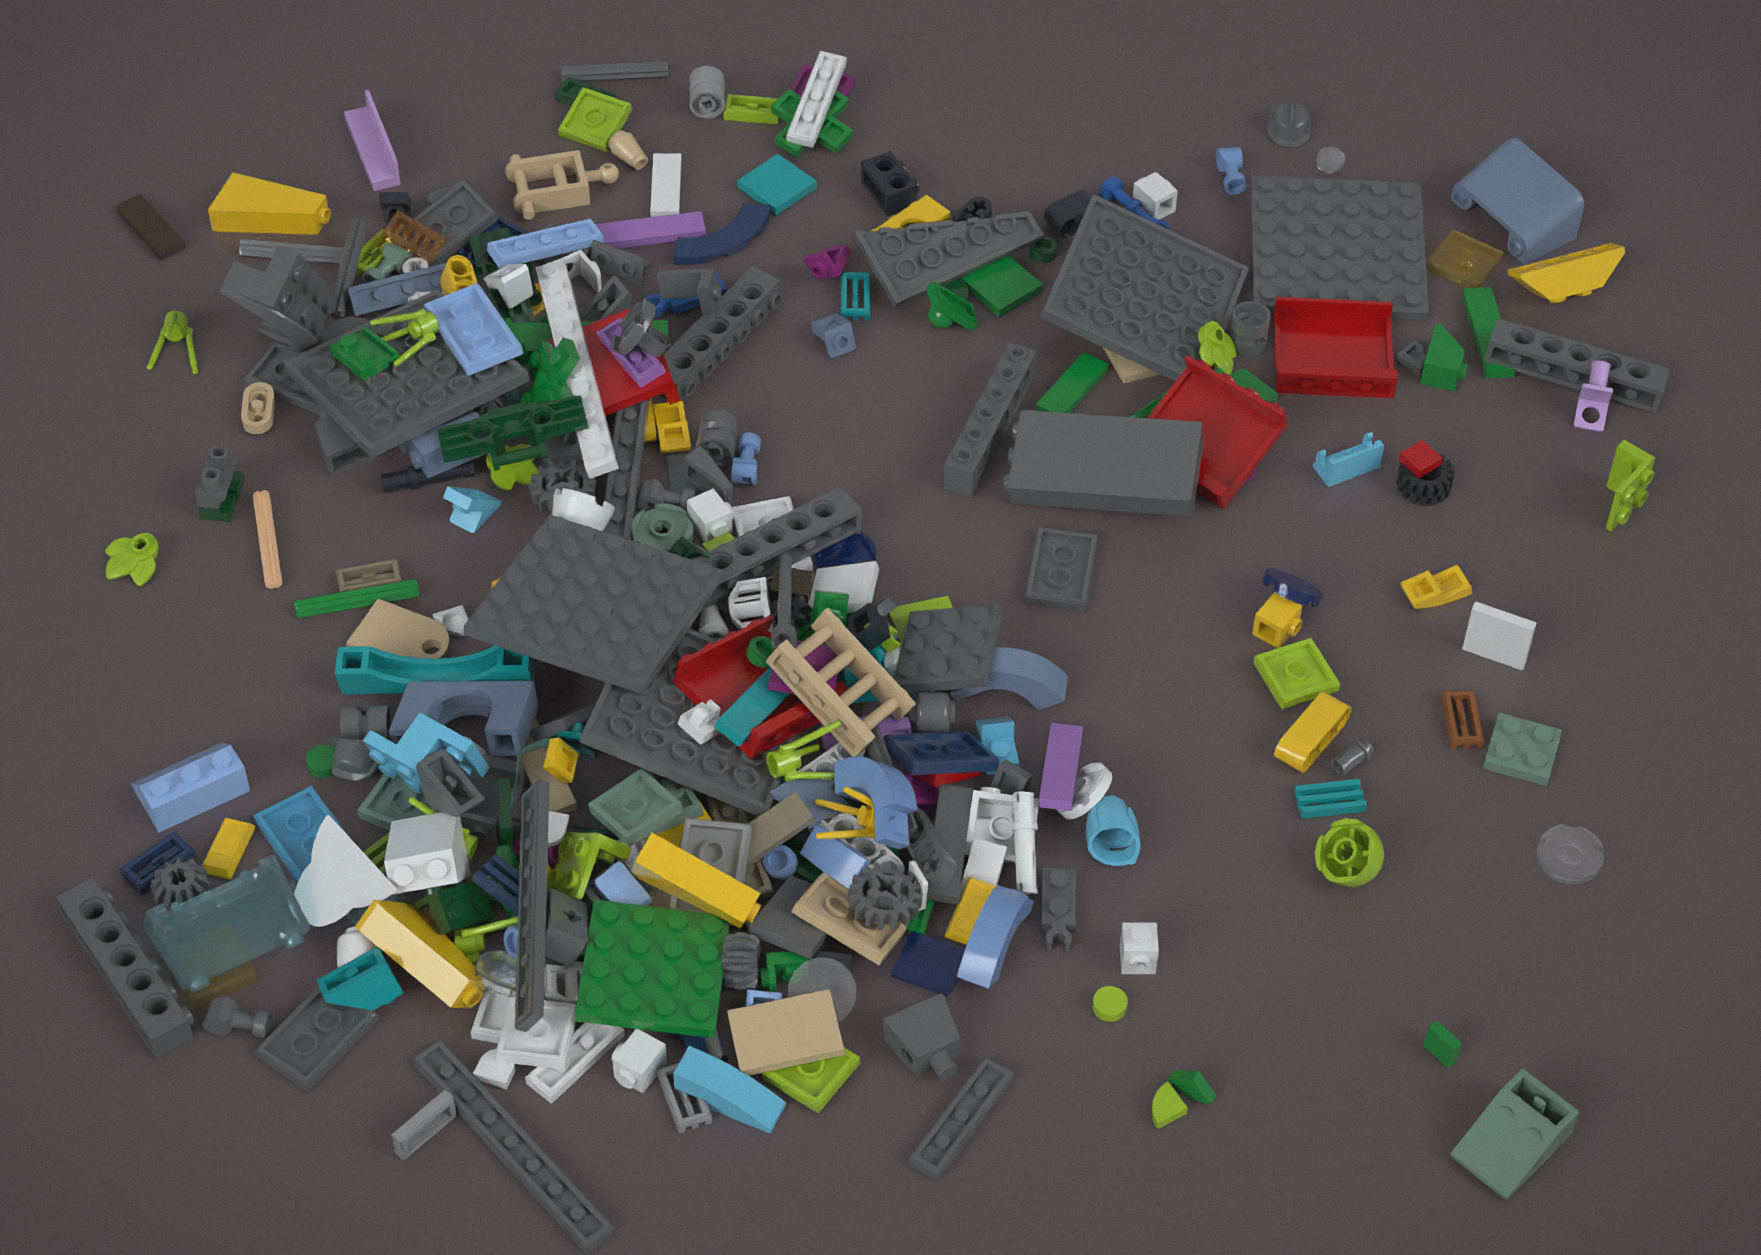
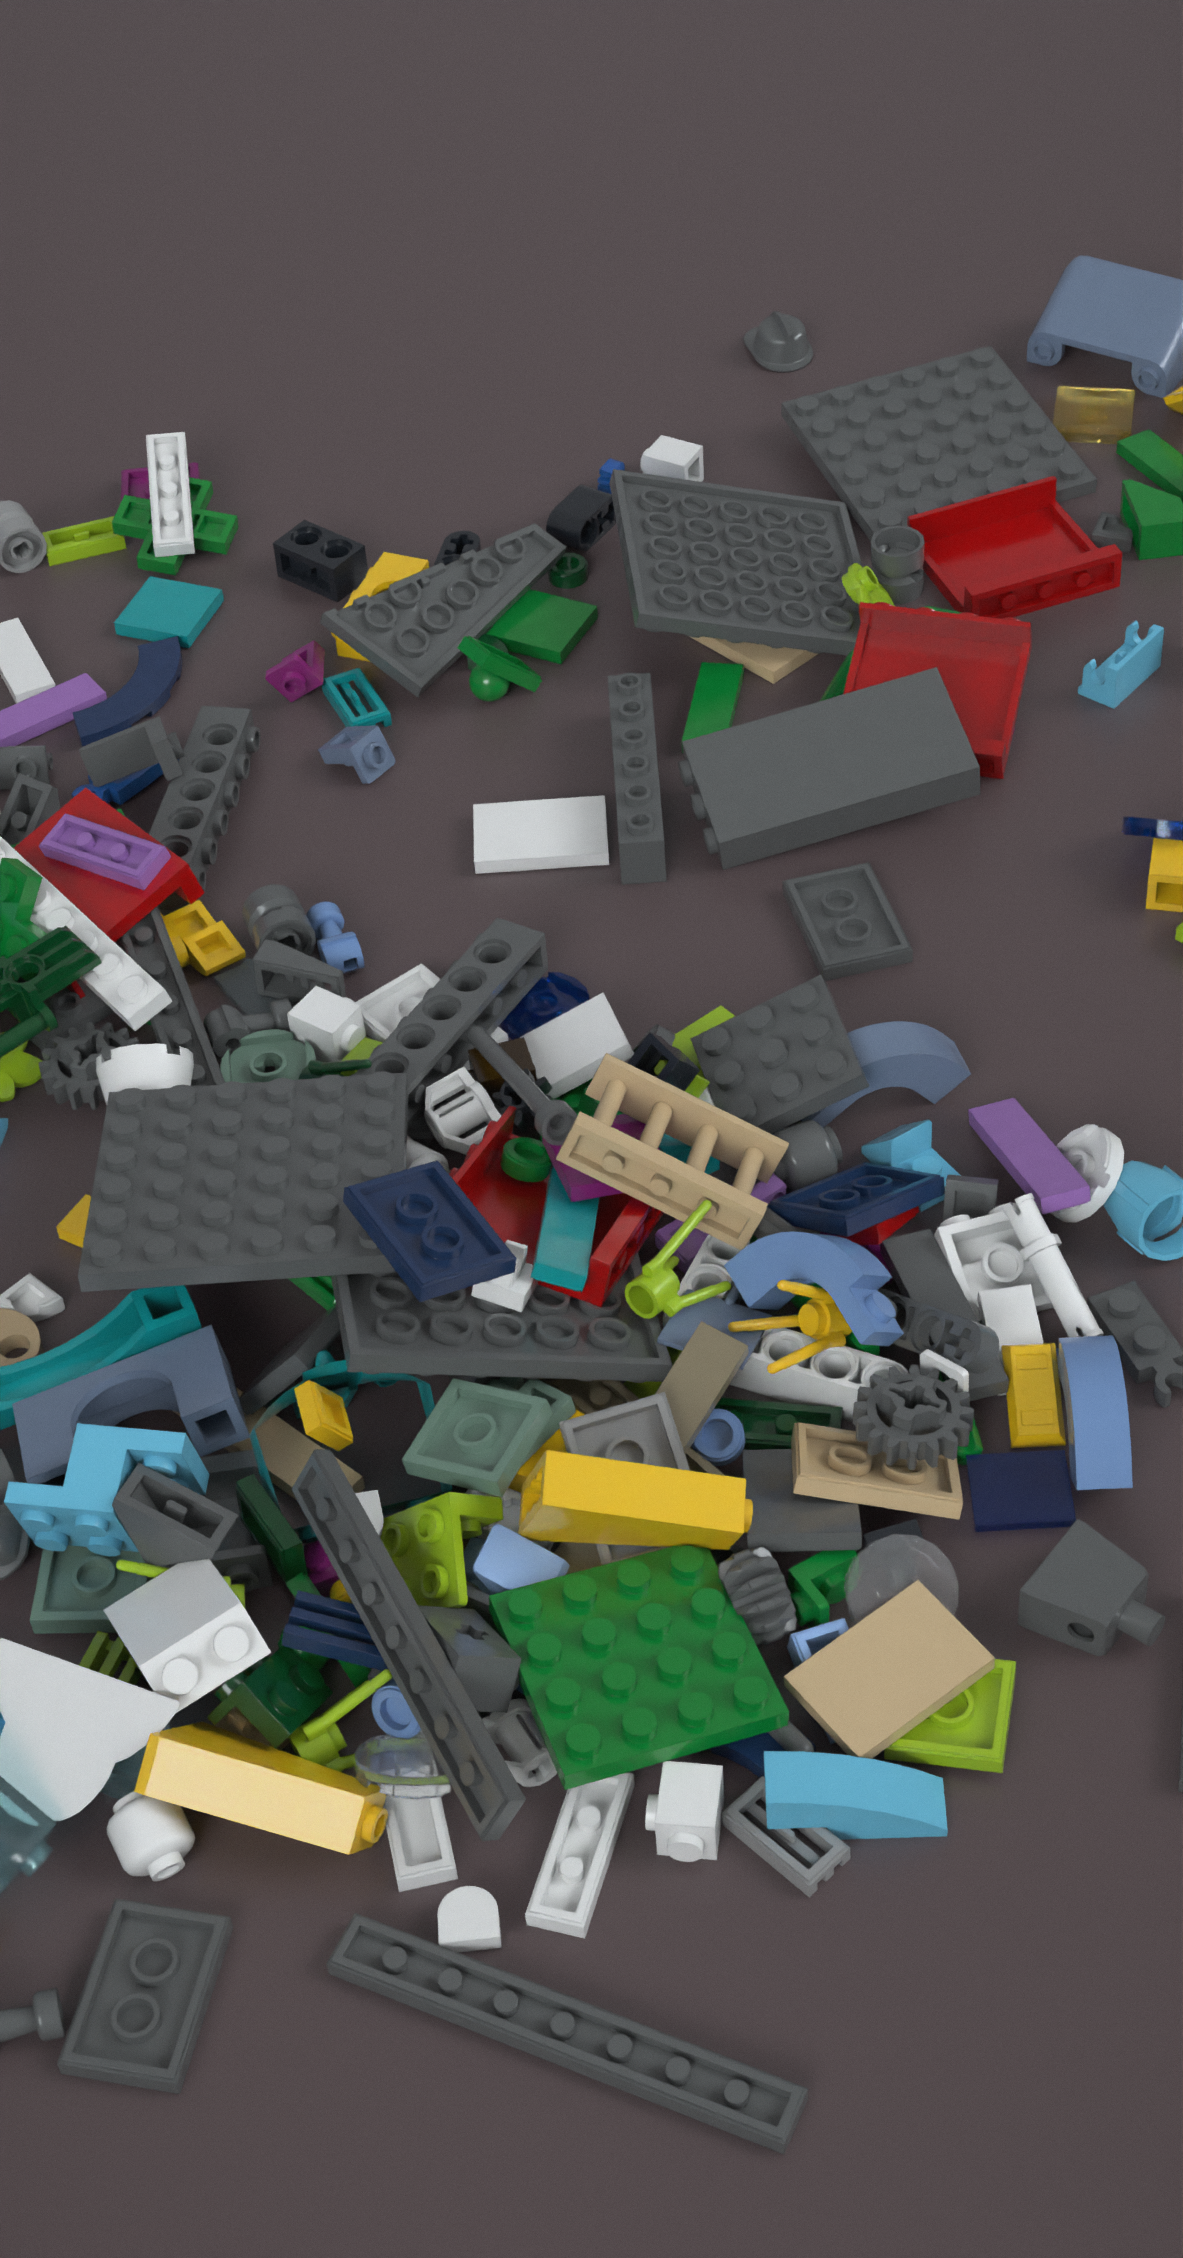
camera: 20 degrees left, 5 degrees down
(361, 983) = (184, 1876): teal slope -> none
(424, 1125) = (409, 2061): light grey tile -> none
(542, 1045) = (529, 1853): white tile -> none
(639, 331) = (105, 809): dark grey tile -> none
(665, 677) = (429, 1230): none -> dark blue tile
(834, 857) = (801, 1395): medium blue slope -> none
(835, 601) = (577, 1067): green tile -> none
(911, 435) = (540, 834): none -> white tile
(1231, 162) = (742, 402): medium blue leg -> none
(1330, 159) = (859, 361): clear plate -> none

